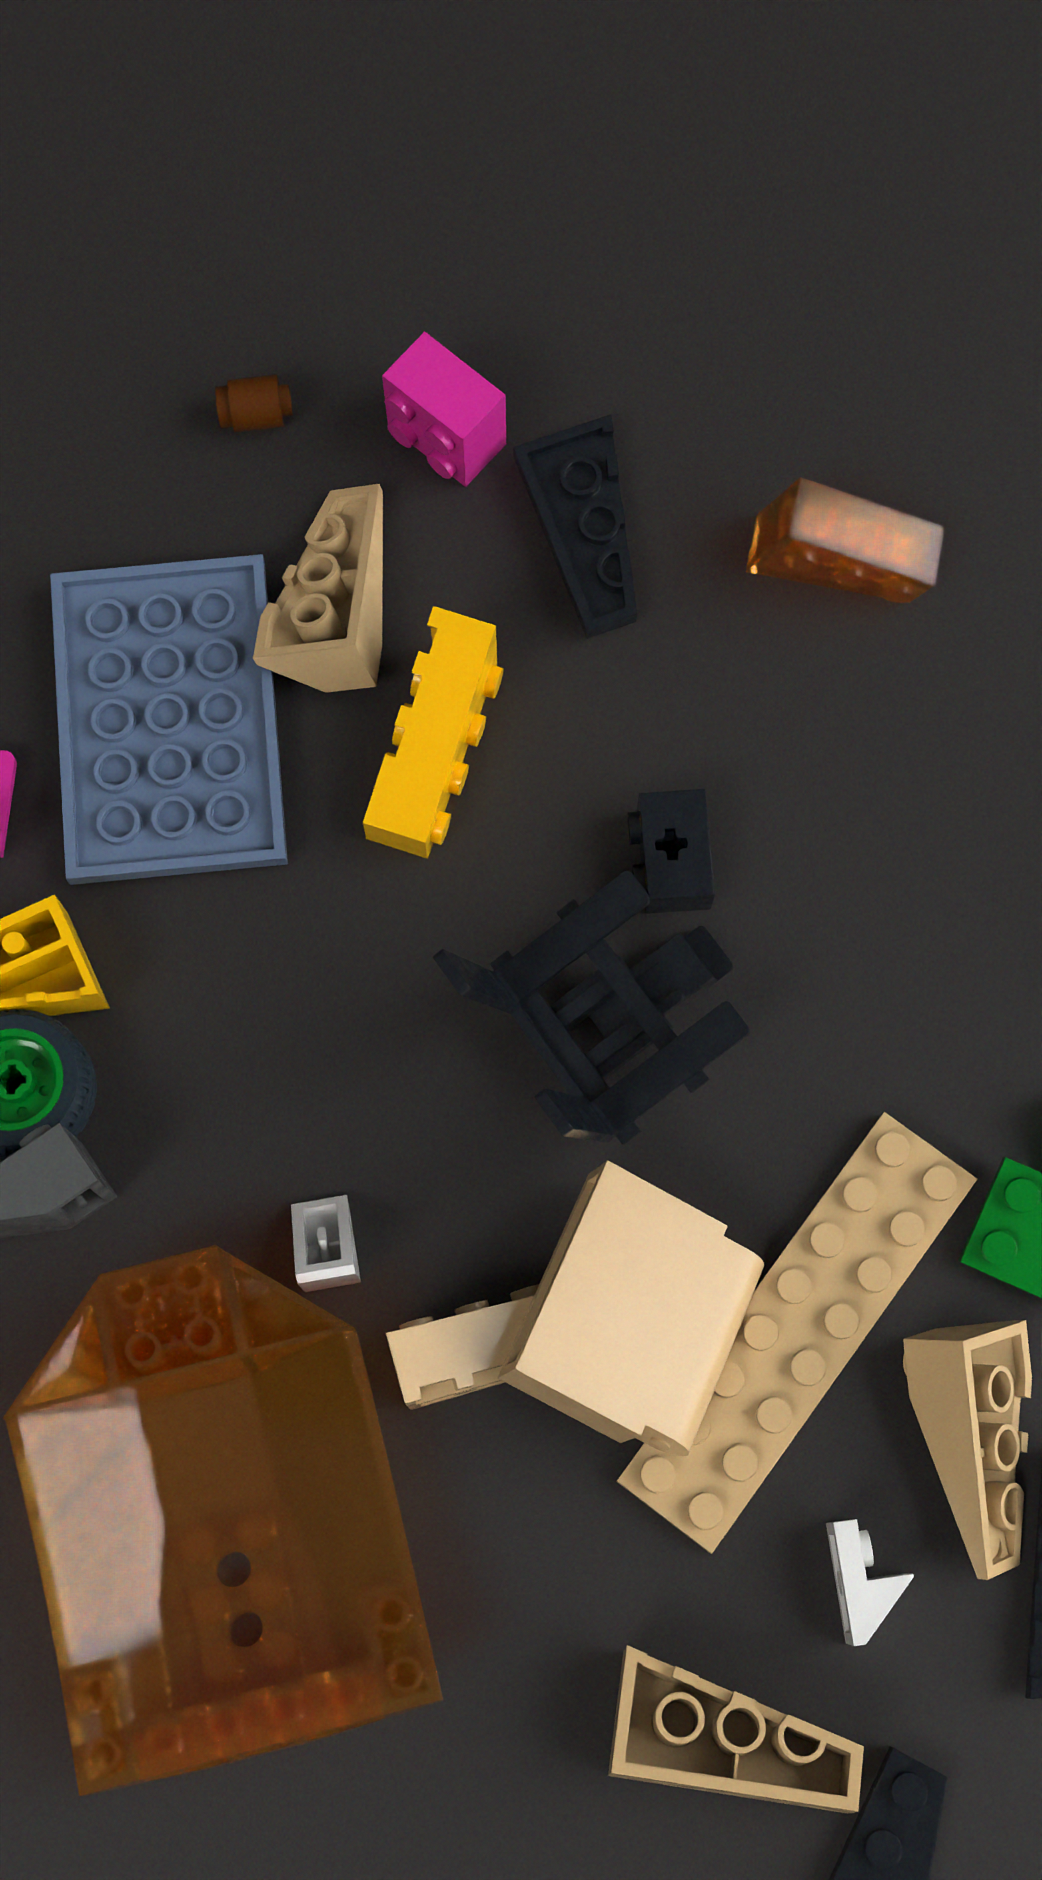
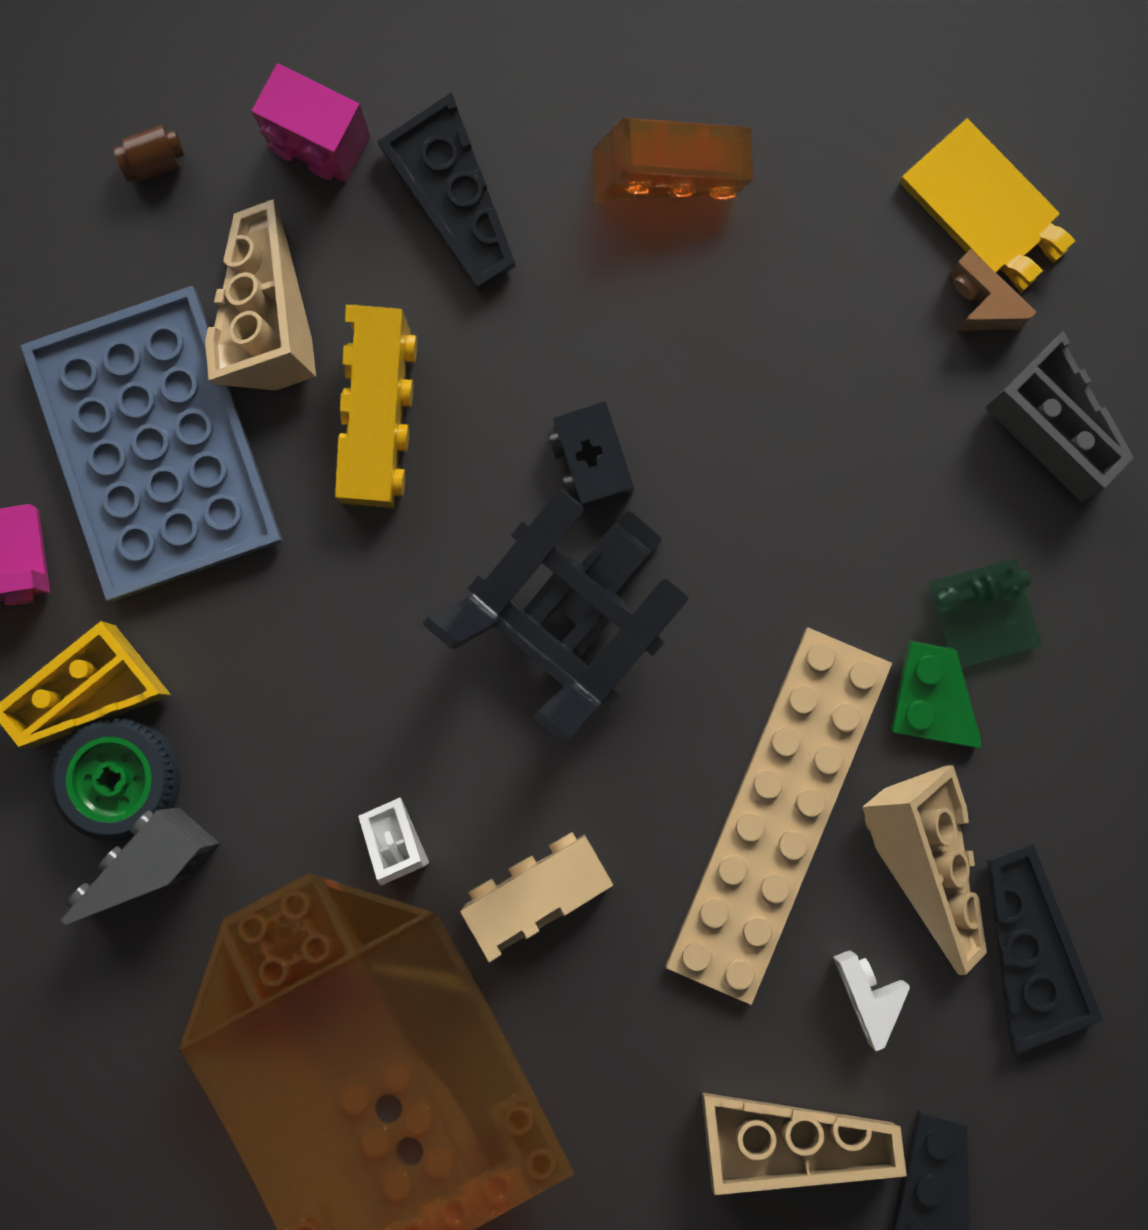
camera: 15 degrees left, 10 degrees up
(634, 1313) = (648, 840): tan piece -> none

